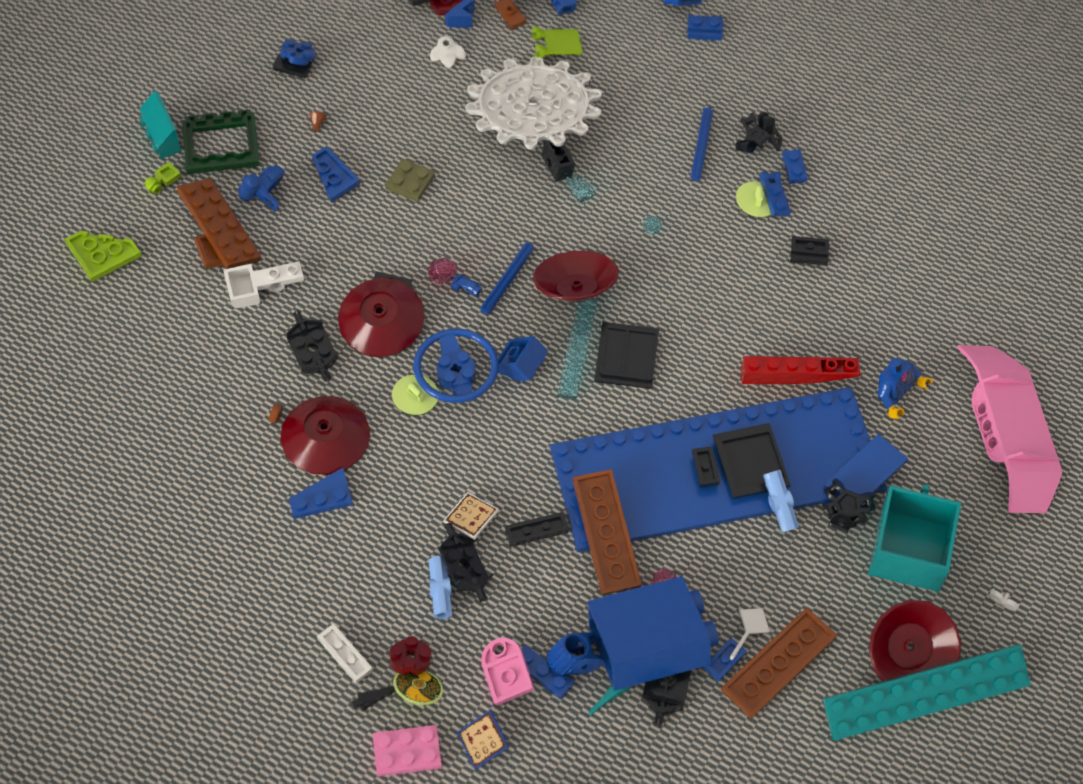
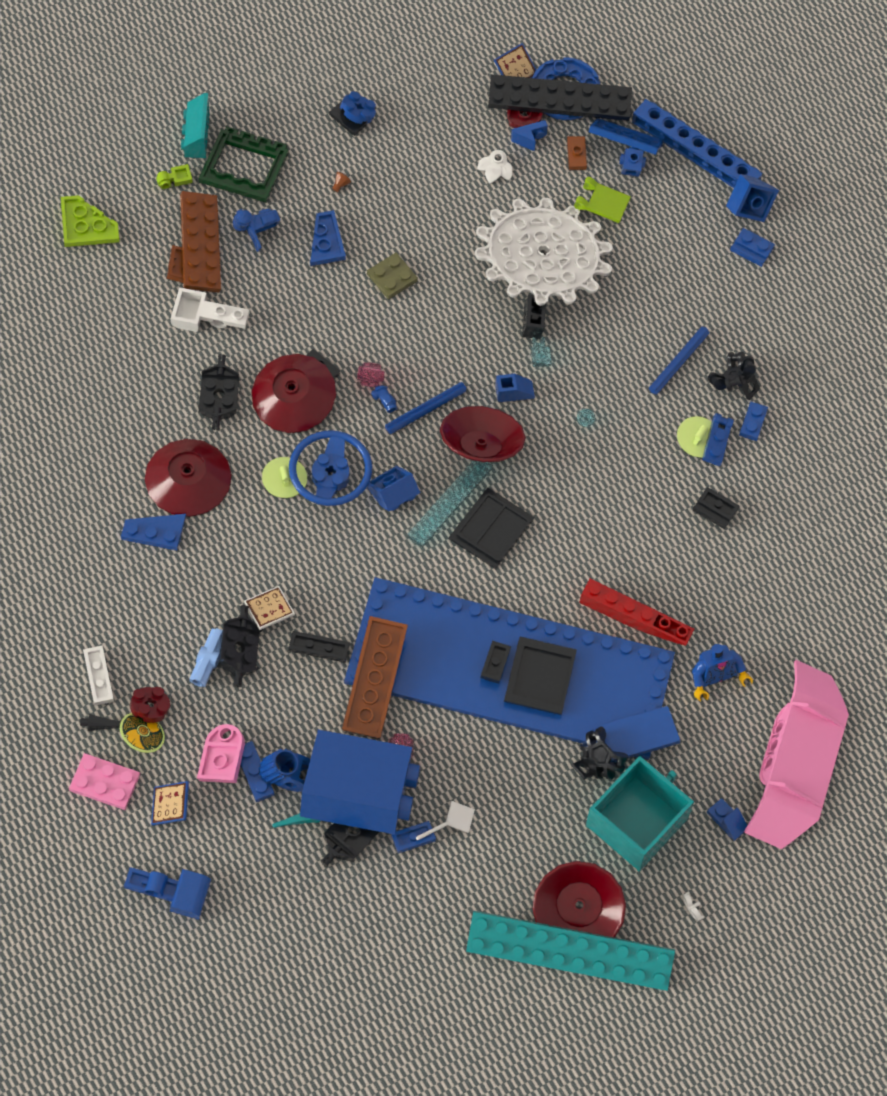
camera: 25 degrees right, 5 degrees up
(275, 413) = (155, 438): dark orange tile -> none
(575, 227) = (513, 387): none -> blue slope
(778, 663) = (458, 862): dark orange plate -> none
(781, 501) = (543, 723): light blue piece -> none
(986, 509) = (728, 819): none -> blue slope

